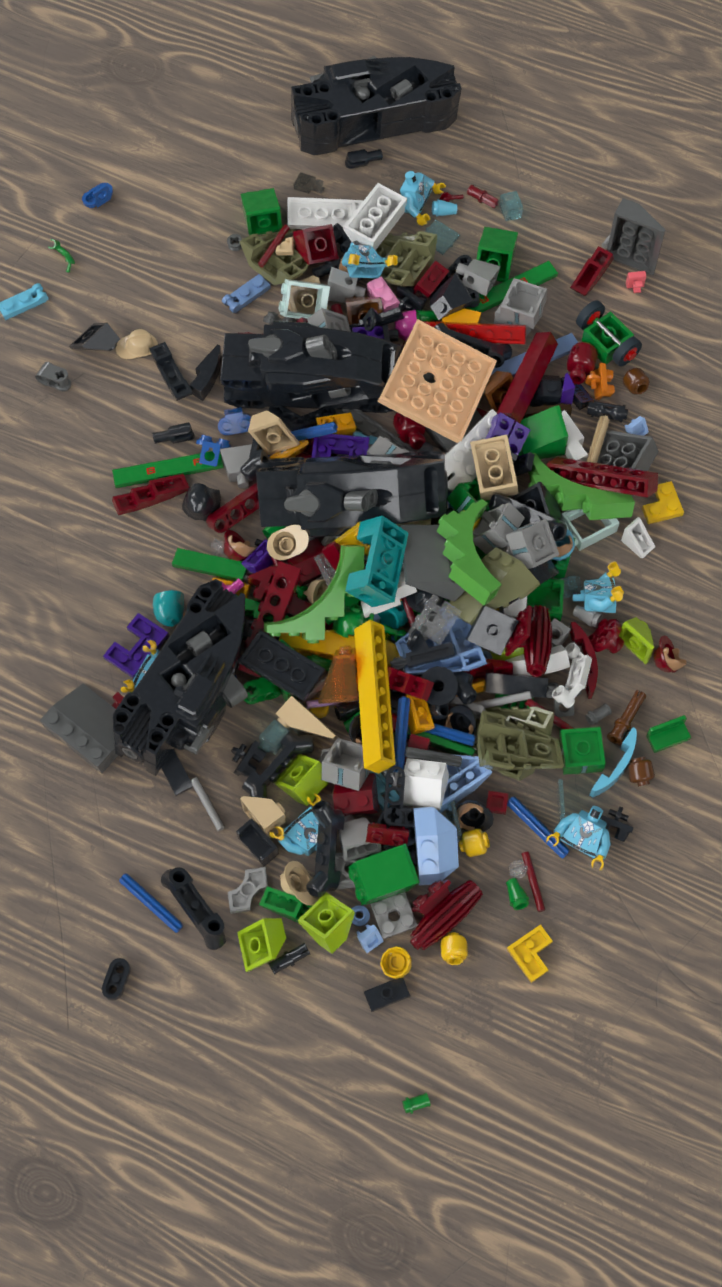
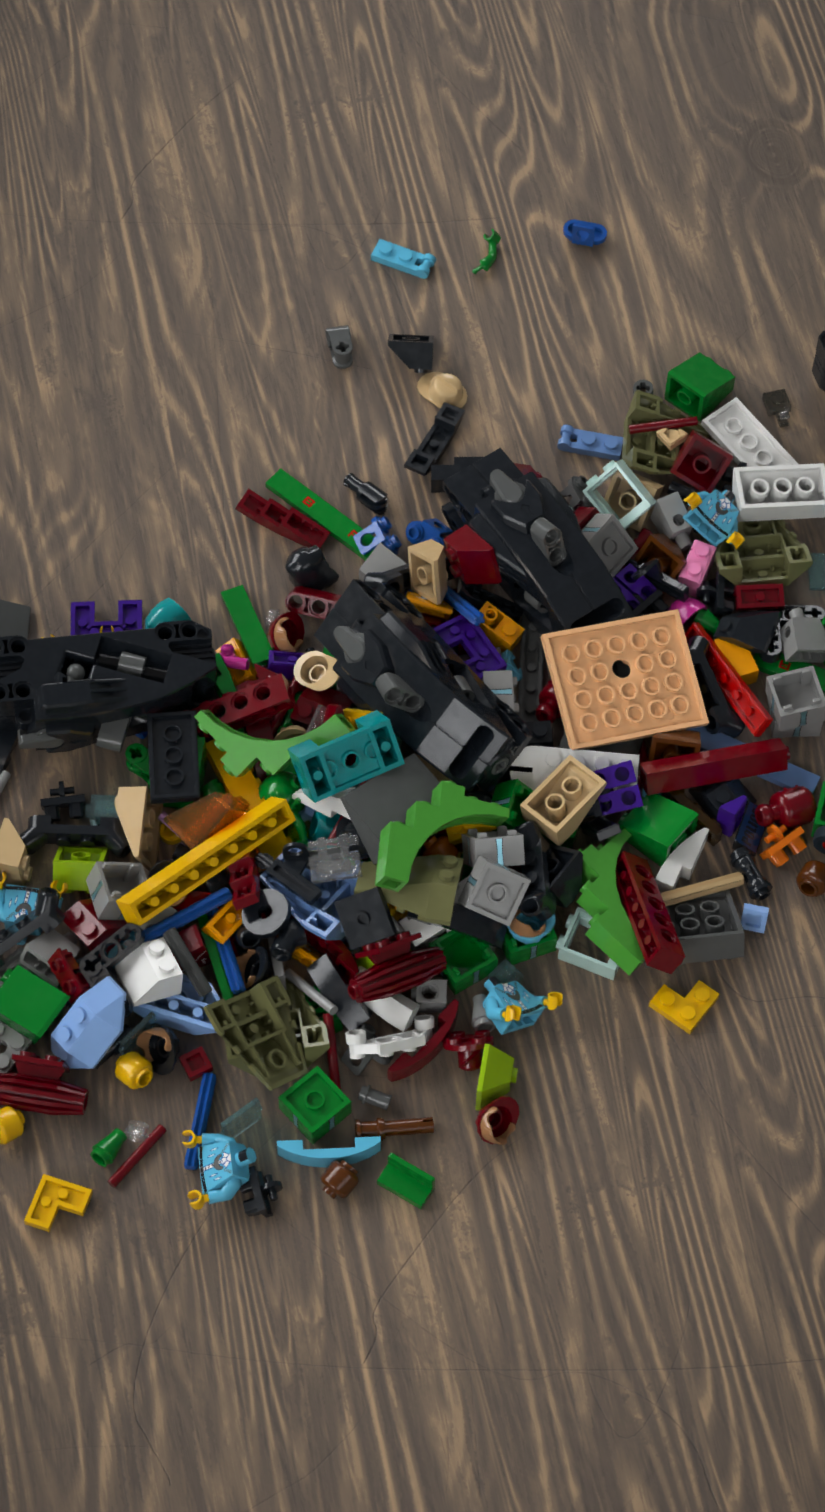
camera: 50 degrees right, 5 degrees down
(286, 401) = (471, 557): none -> dark red slope
(637, 538) = (616, 1003): white slope -> none

